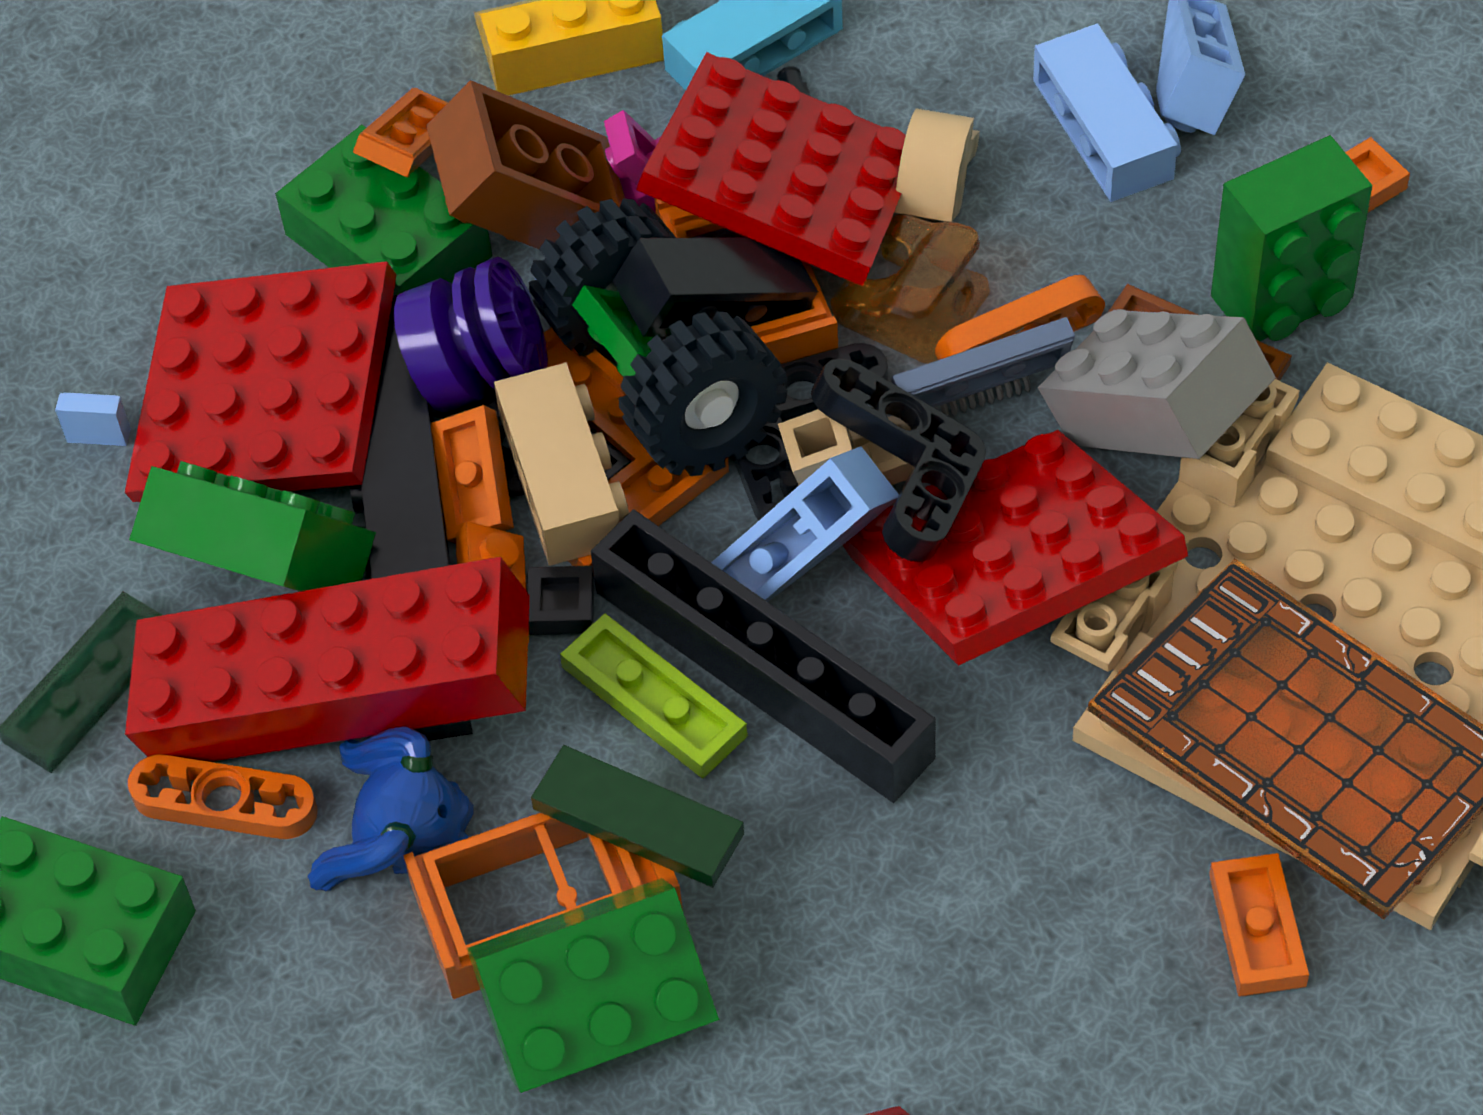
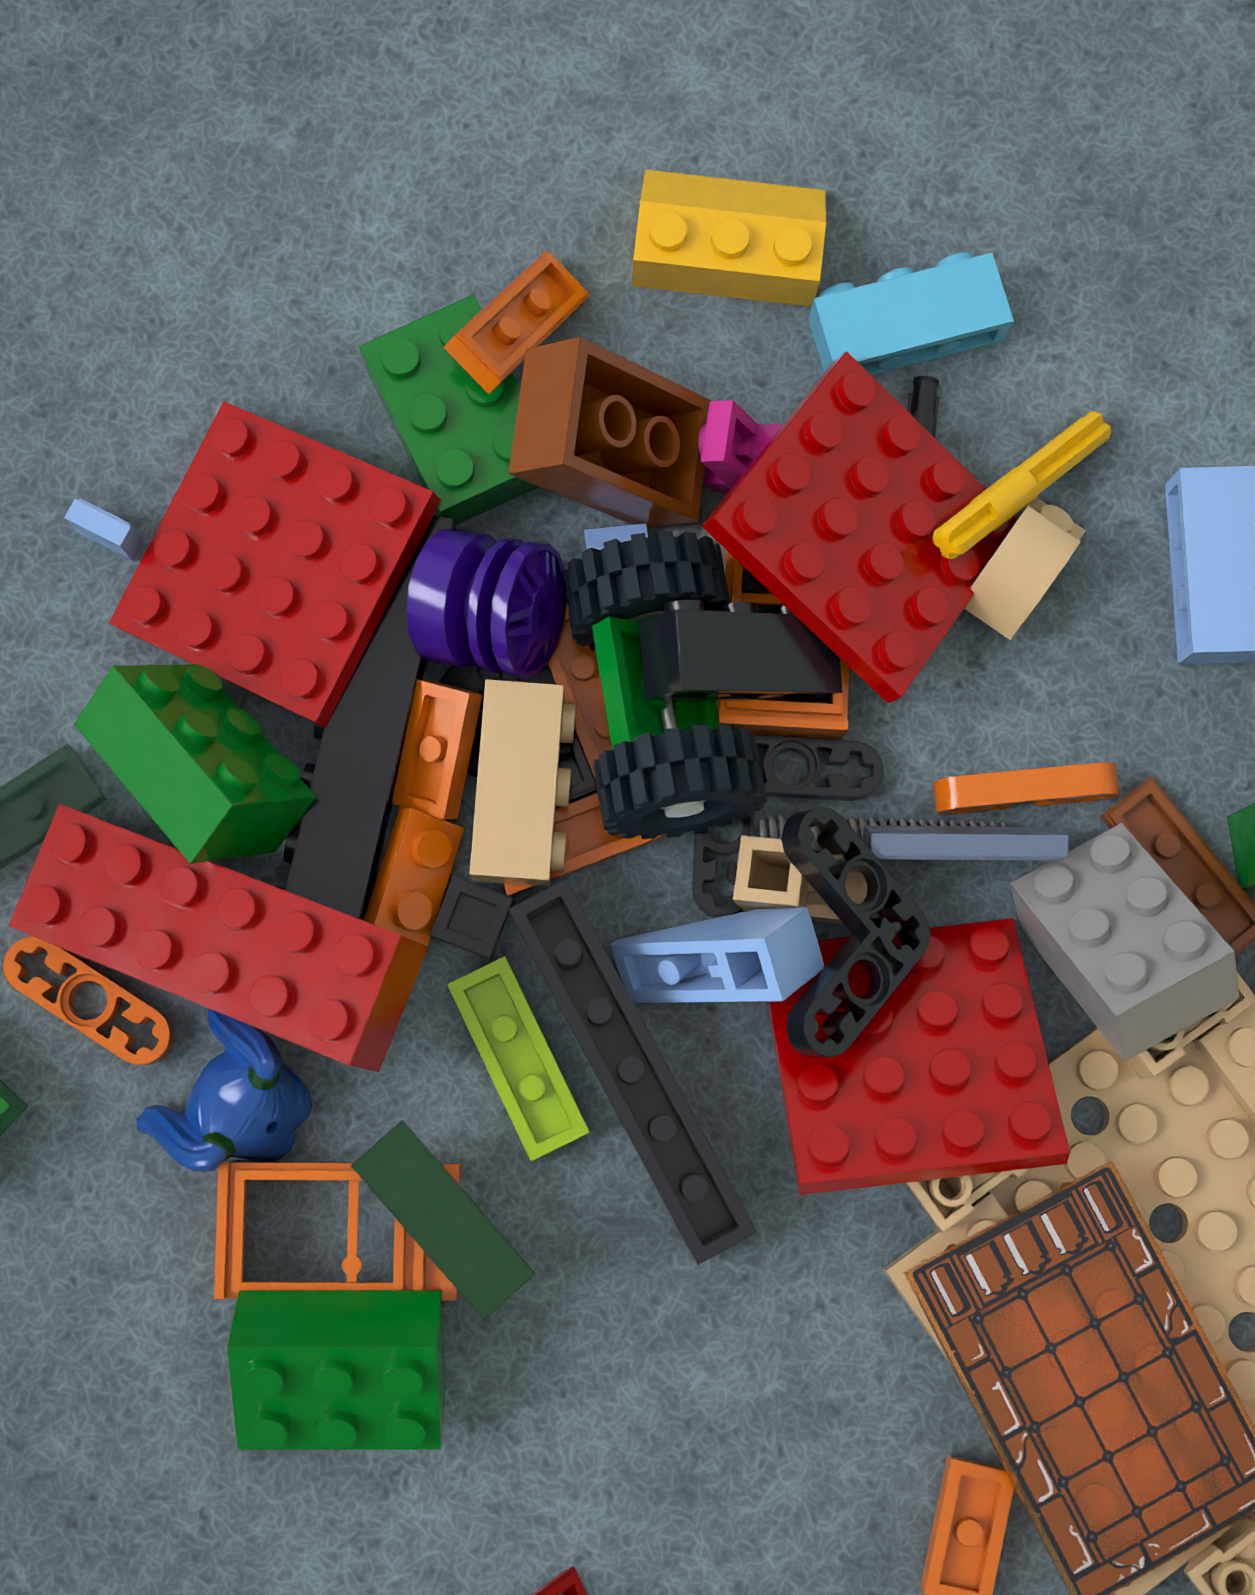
camera: 10 degrees right, 25 degrees up
(895, 111) = (1021, 485): none -> yellow axle
(922, 298) = (961, 717): clear orange piece -> none

